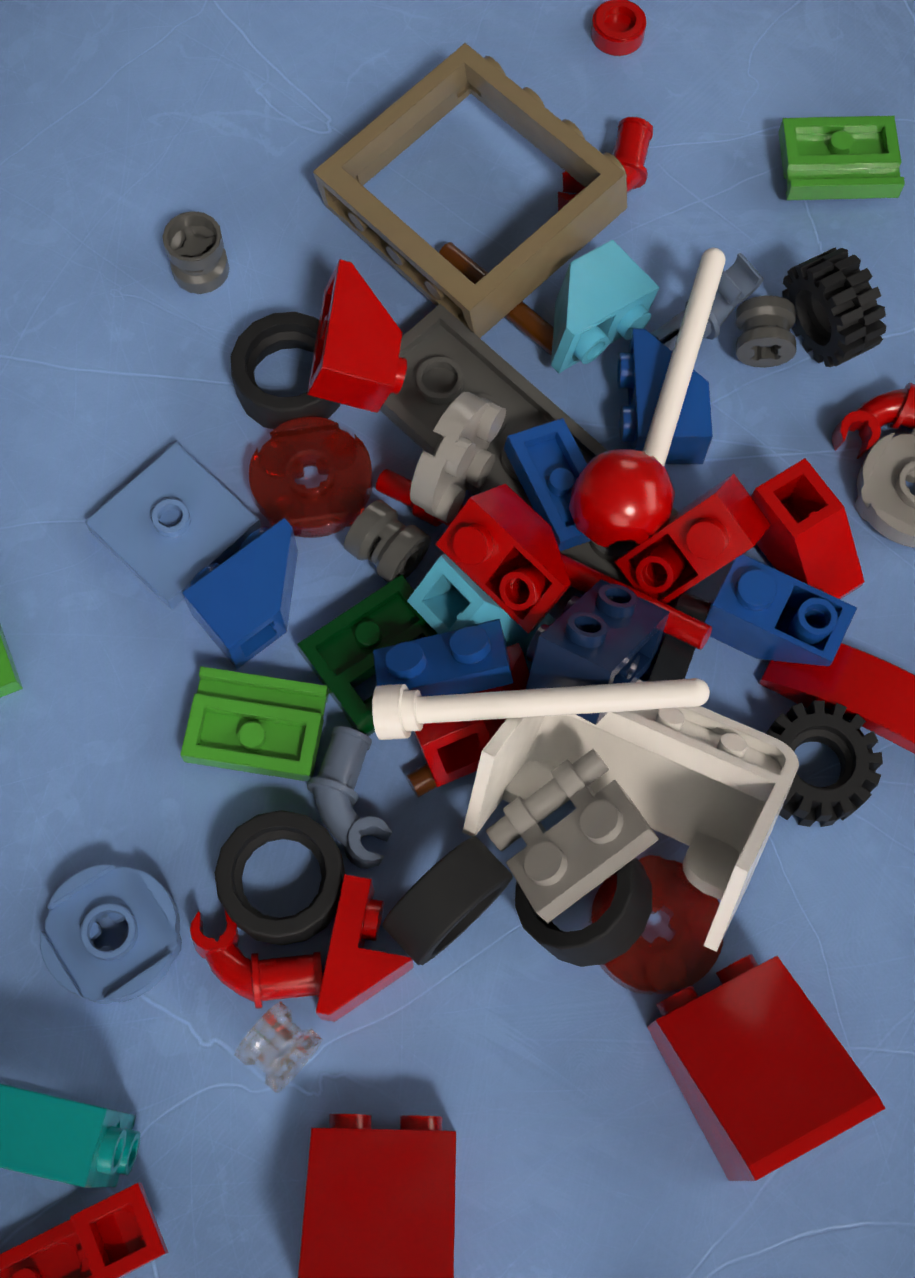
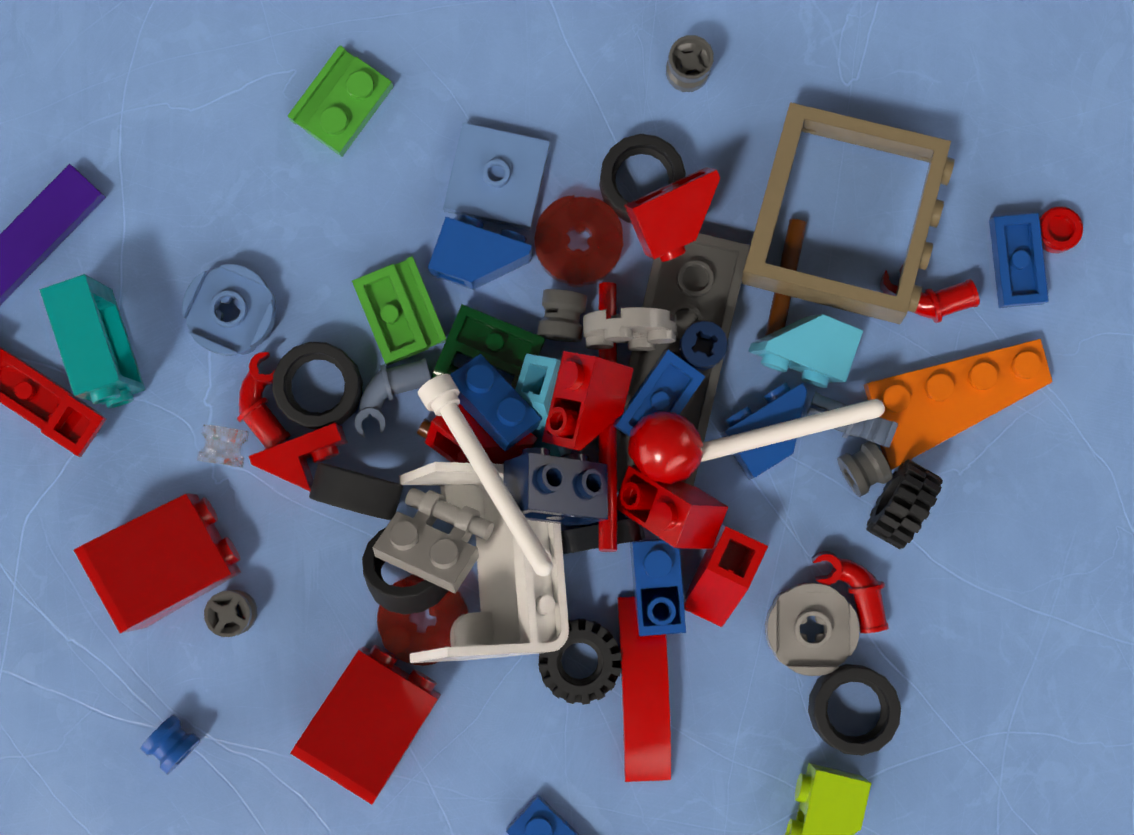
camera: 55 degrees right, 15 degrees up
(518, 1177) = (218, 616): none -> dark grey wheel
(526, 383) = (696, 350): none -> dark blue wheel
(628, 73) = (1018, 260): none -> blue plate
(737, 200) = (955, 395): none -> orange wing
(840, 157) = (1040, 445): bright green plate -> none

